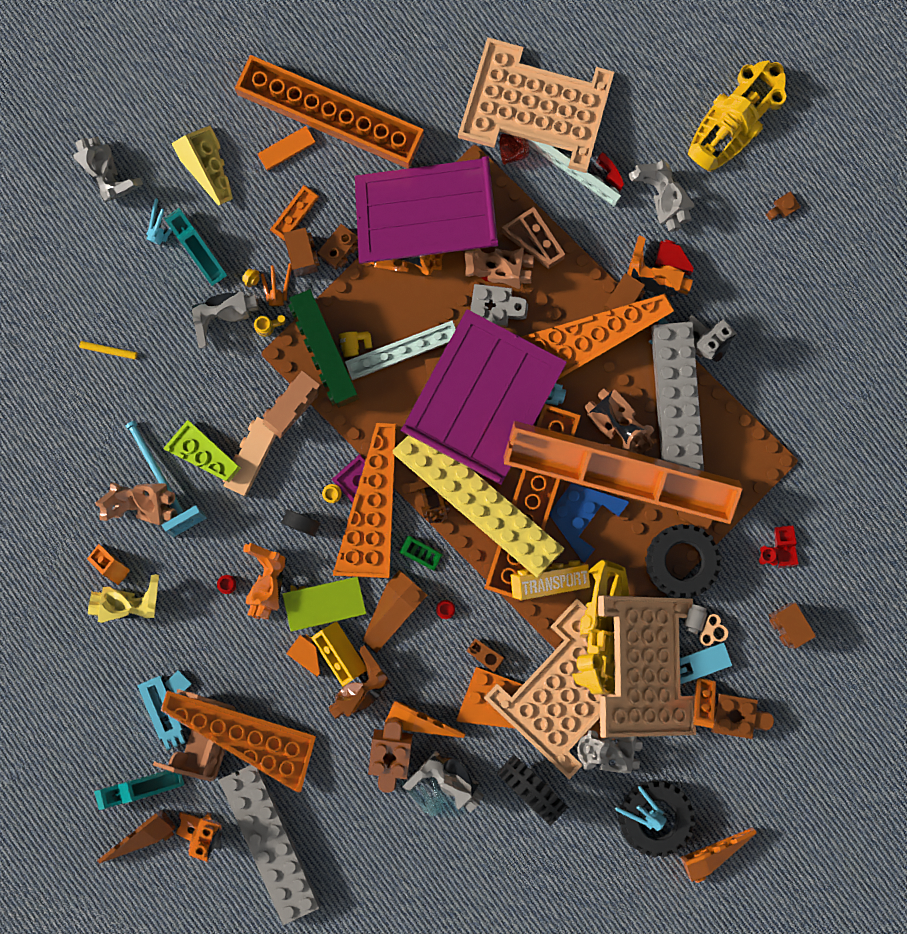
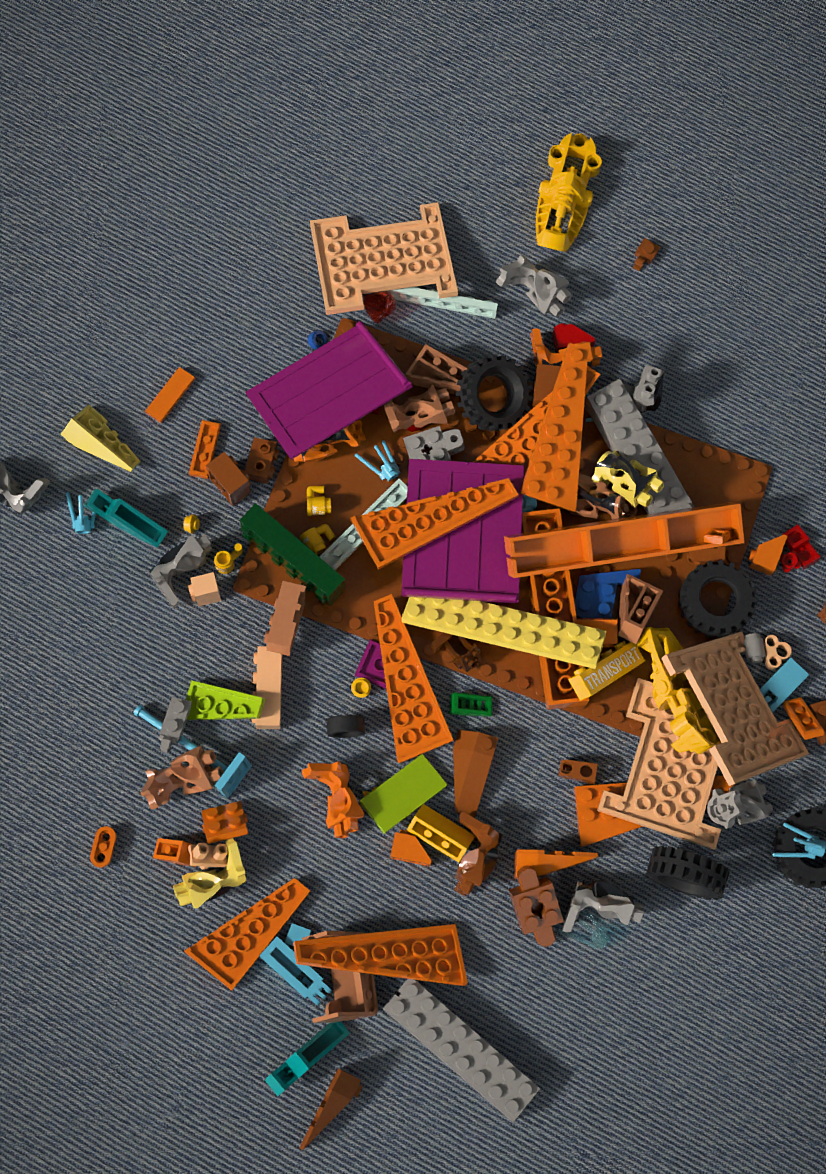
camera: 30 degrees left, 10 degrees down
(47, 528) = (103, 847): none -> orange plate
(108, 350) = (84, 651): yellow bar -> none
(127, 665) = (239, 942): none -> orange wing
(130, 581) = (208, 855): none -> light nougat hips
(154, 451) = (174, 723): none -> light grey hinge
(159, 558) = (224, 822): none -> orange plate
(205, 836) = (396, 1068): orange hips -> none
(226, 584) = (300, 819): red plate -> none
(234, 344) = (204, 589): none -> light nougat brick
(275, 296) = (223, 531): orange plant -> none
(329, 111) = (195, 344): orange brick -> none
(369, 312) = (317, 505): none -> yellow piece
(433, 372) = (408, 527): none -> orange wing
(436, 154) = (312, 339): none -> blue piece
(445, 609) = (520, 746): red plate -> none
(447, 308) = (389, 470): none -> medium azure plant
(567, 539) = (609, 625): none -> orange slope
(590, 298) = (516, 389): none -> black tyre
(597, 369) = (556, 455): none -> orange wing
(605, 537) = (636, 607): none -> nougat wedge
(614, 176) = (483, 291): red slope -> none
(659, 428) = (638, 484): none -> light yellow hips
(708, 507) = (717, 536): none -> orange tile
(750, 541) = (767, 555): none -> orange slope

